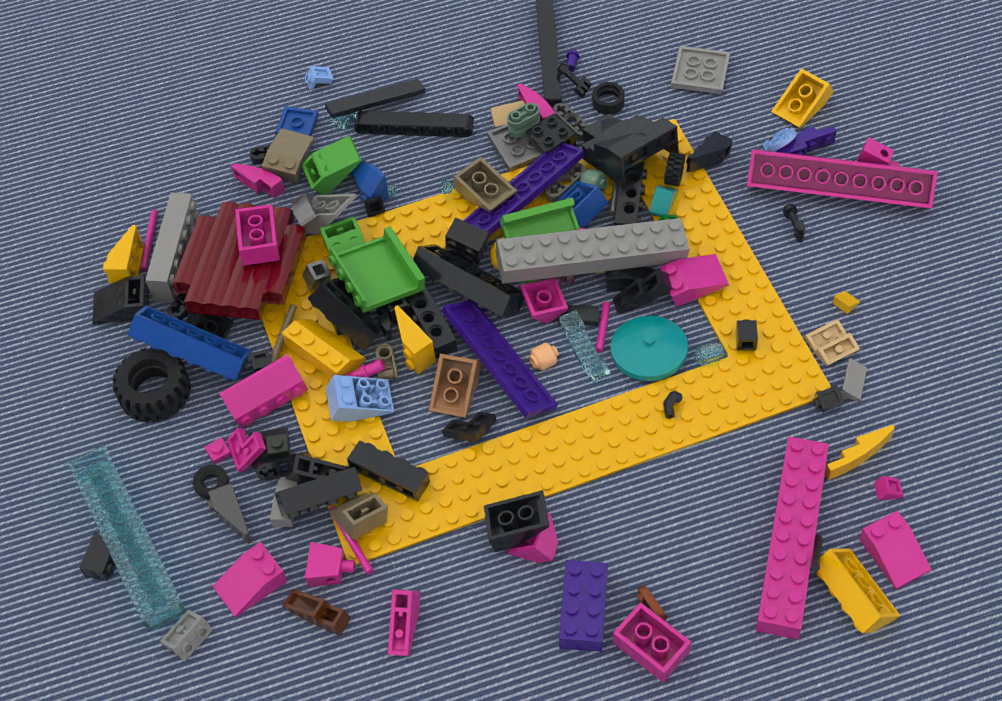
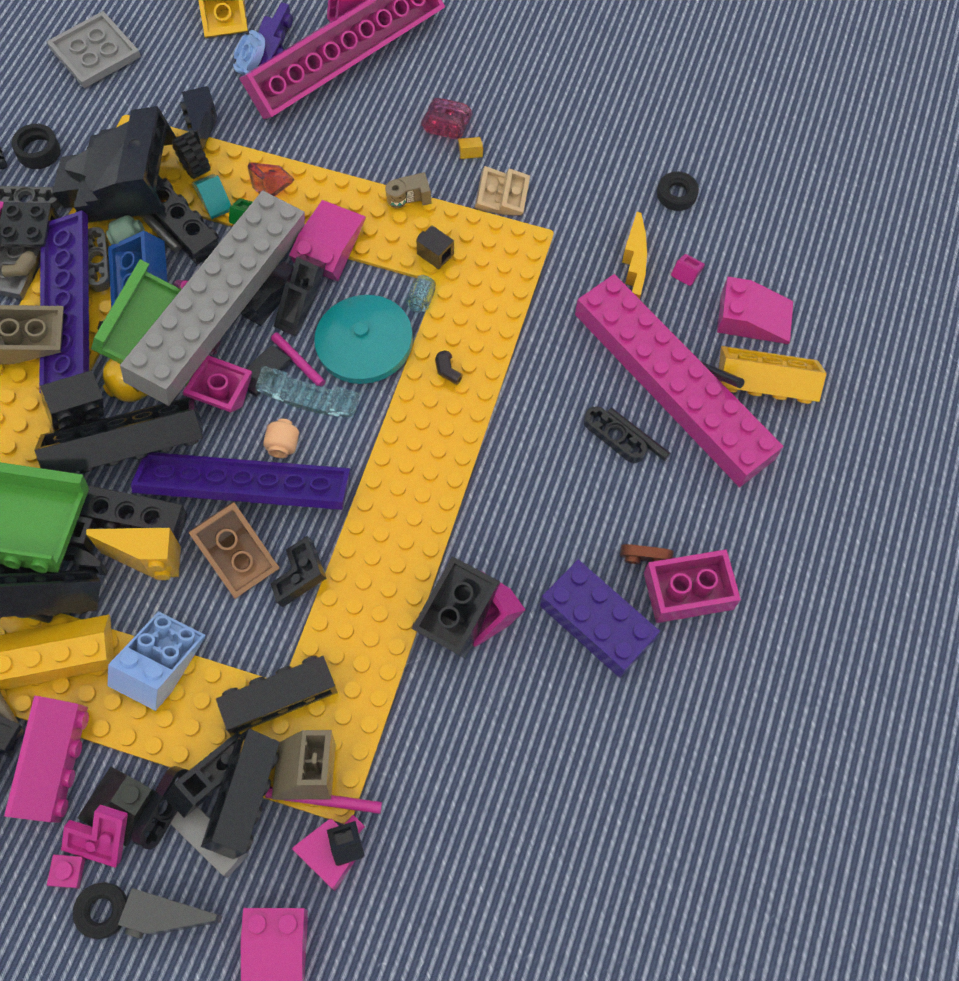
camera: 60 degrees left, 10 degrees up
(317, 611) = (377, 904): reddish brown slope -> none
(333, 565) = (345, 843): none -> black slope
(368, 370) = (130, 625): dark pink pin -> none
(390, 366) = (142, 600): dark tan piece -> none
(403, 620) = (469, 815): dark pink slope -> none
(525, 154) = (21, 267): none -> dark tan arm
(704, 218) = (268, 178): none -> slope
(725, 522) = (616, 445): none -> black beam
(734, 563) = (651, 444): none -> black bar
(772, 291) = (408, 190): none -> dark tan leg
(790, 212) = (358, 115): black hinge -> none
(828, 399) = (560, 240): black bracket -> none
(849, 273) = (446, 118): none -> clear pink brick
(854, 380) = (556, 207): light grey slope -> none
(943, 451) = (681, 179): none -> black tyre

